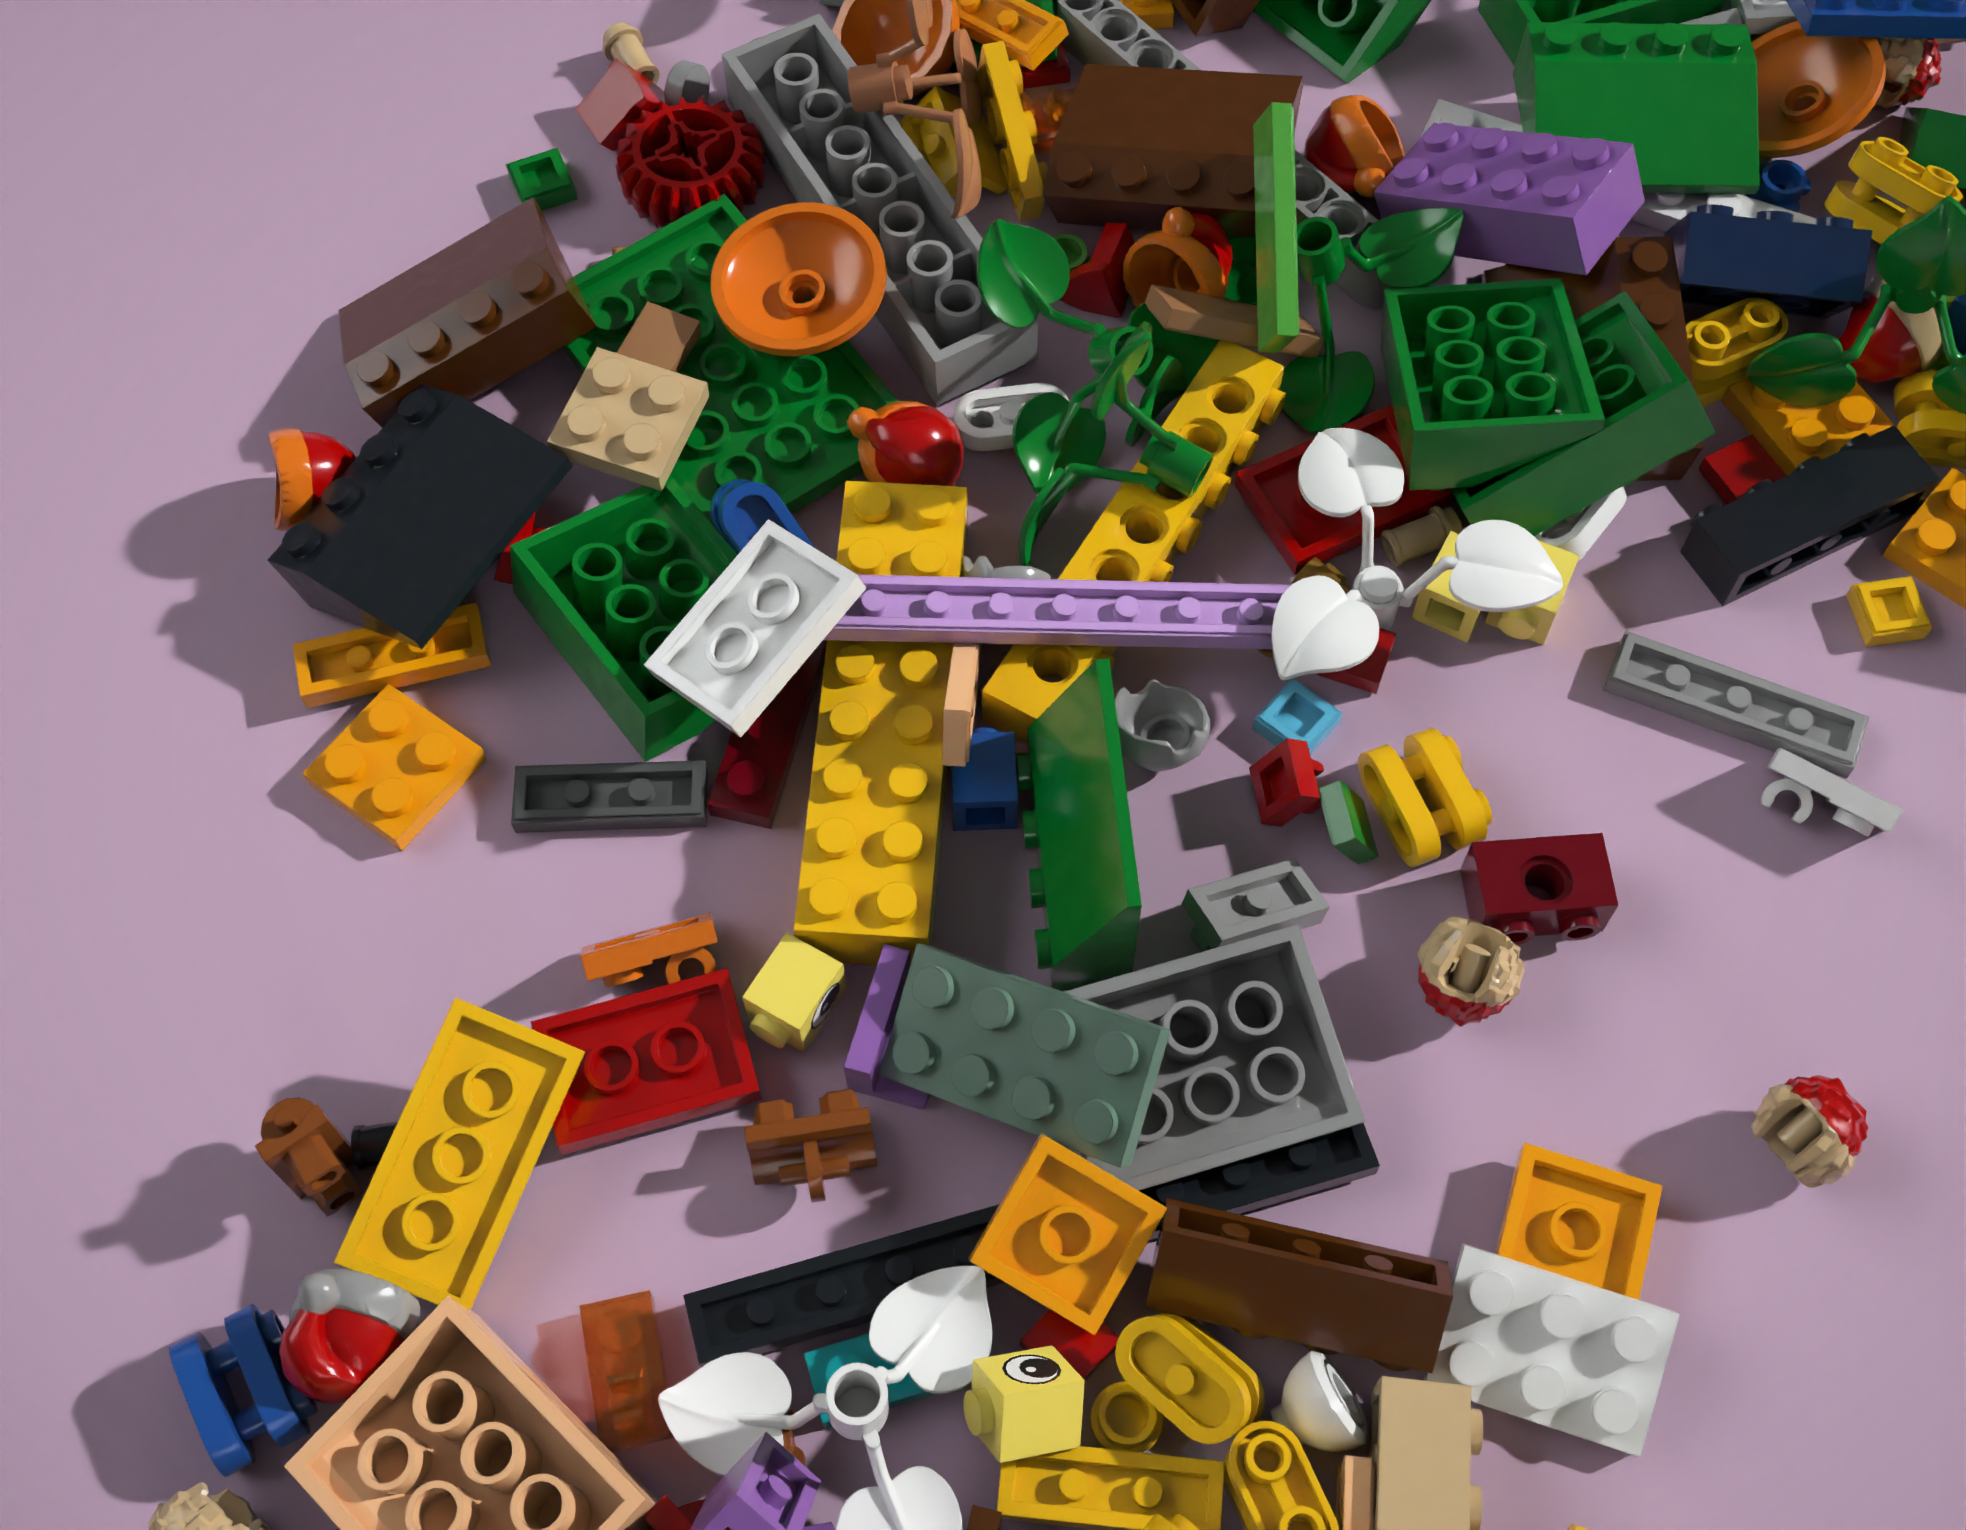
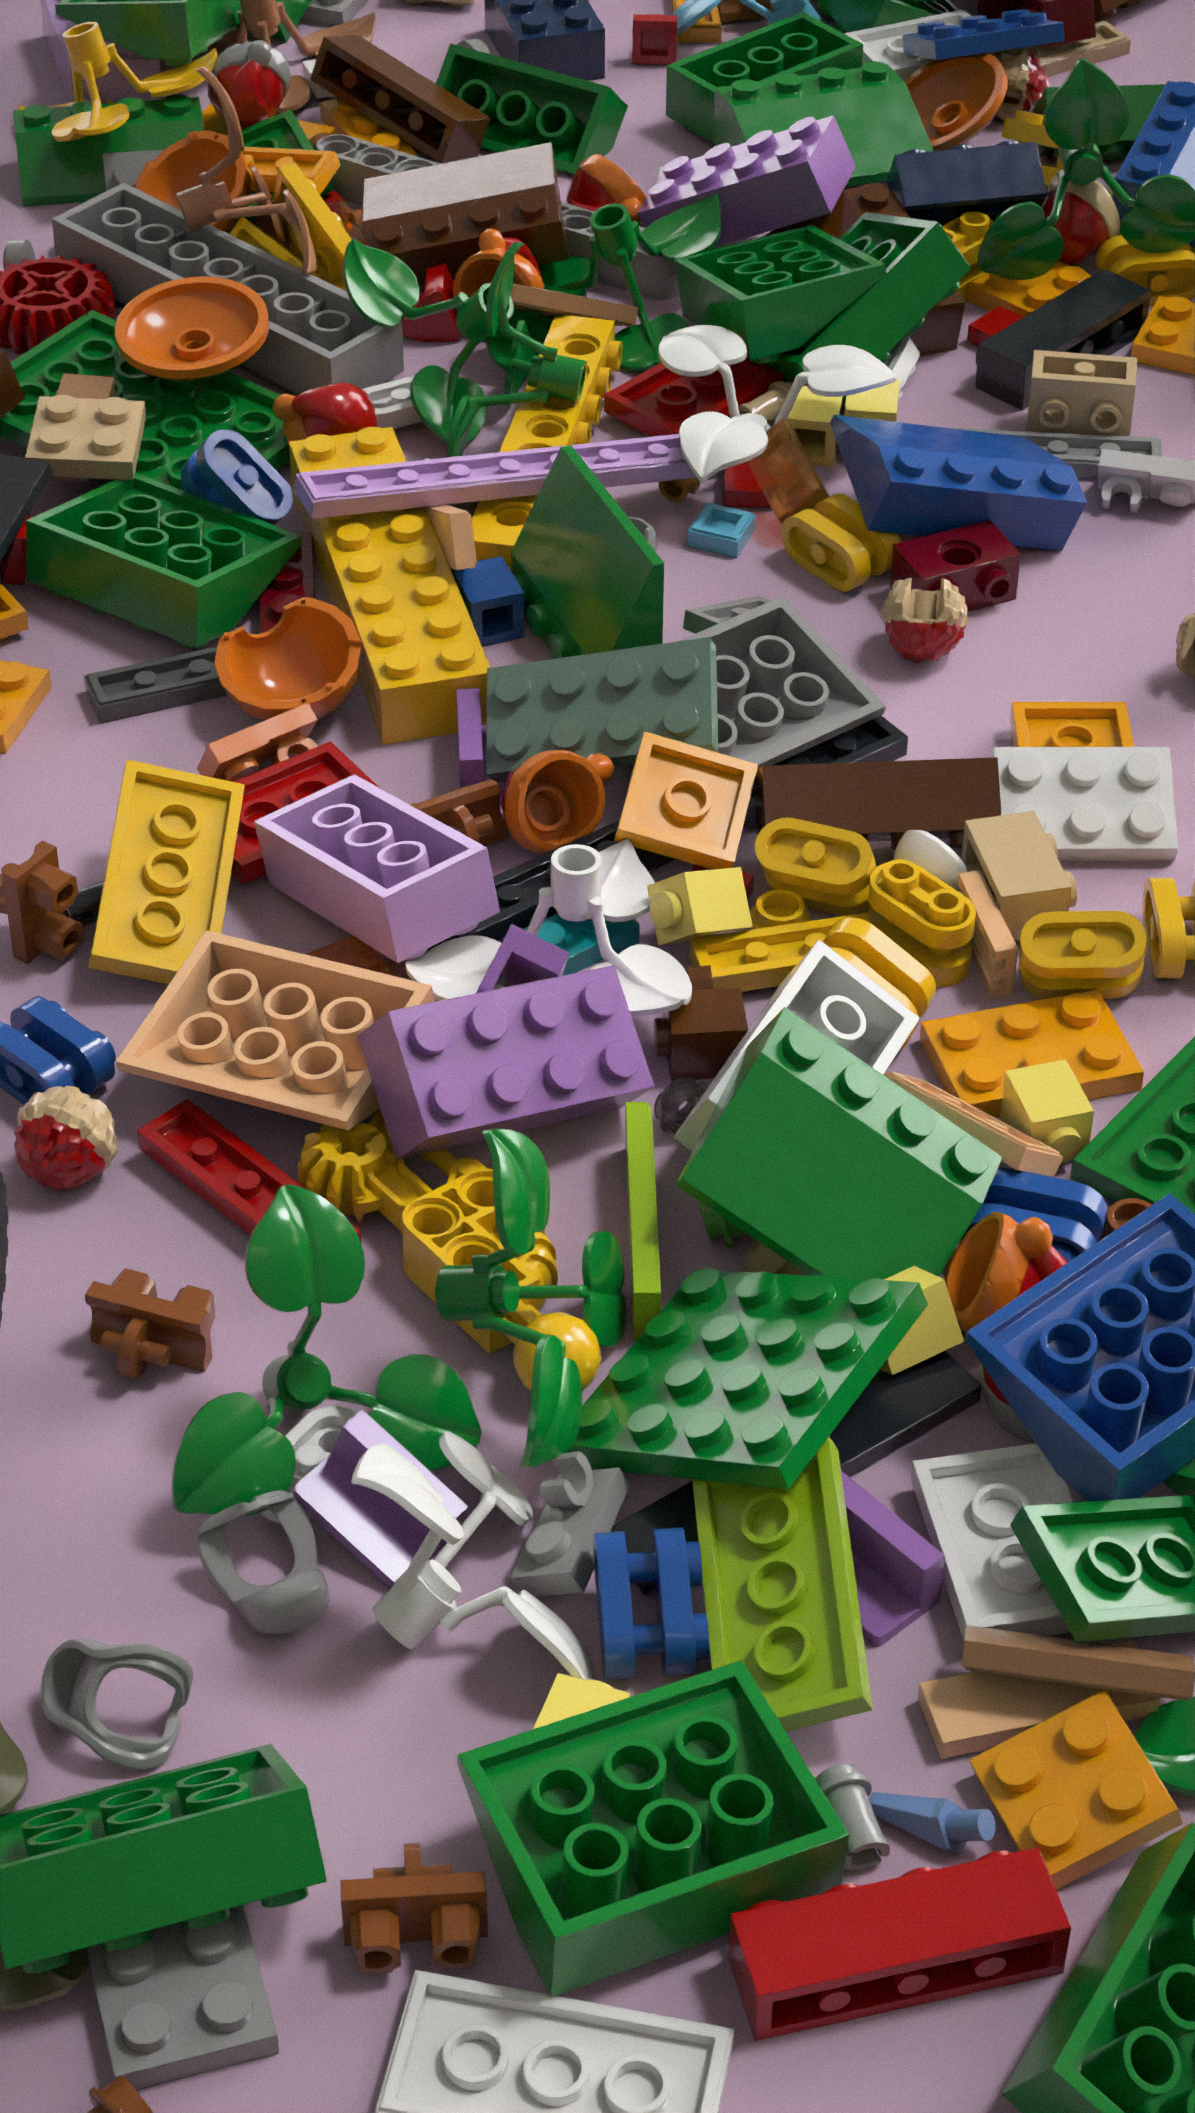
camera: 20 degrees left, 20 degrees down
(343, 1332) = (119, 979): red piece -> none
(677, 1239) = (378, 867): none -> lavender brick
(716, 845) = (301, 660): none -> orange cylinder
(755, 627) = (269, 504): white plate -> none
(794, 994) = (394, 744): light yellow brick -> none
(904, 1160) = (555, 790): none -> orange piece
(1276, 228) = (576, 220): bright green tile -> none
(1286, 783) = (732, 556): red tile -> none
(1347, 822) = (790, 566): green tile -> none
(1394, 680) = (787, 473): none -> clear orange plate
(1587, 749) = (948, 478): none -> blue slope
(1794, 632) = (1081, 393): none -> tan brick
(1888, 611) = (1156, 386): yellow tile -> none

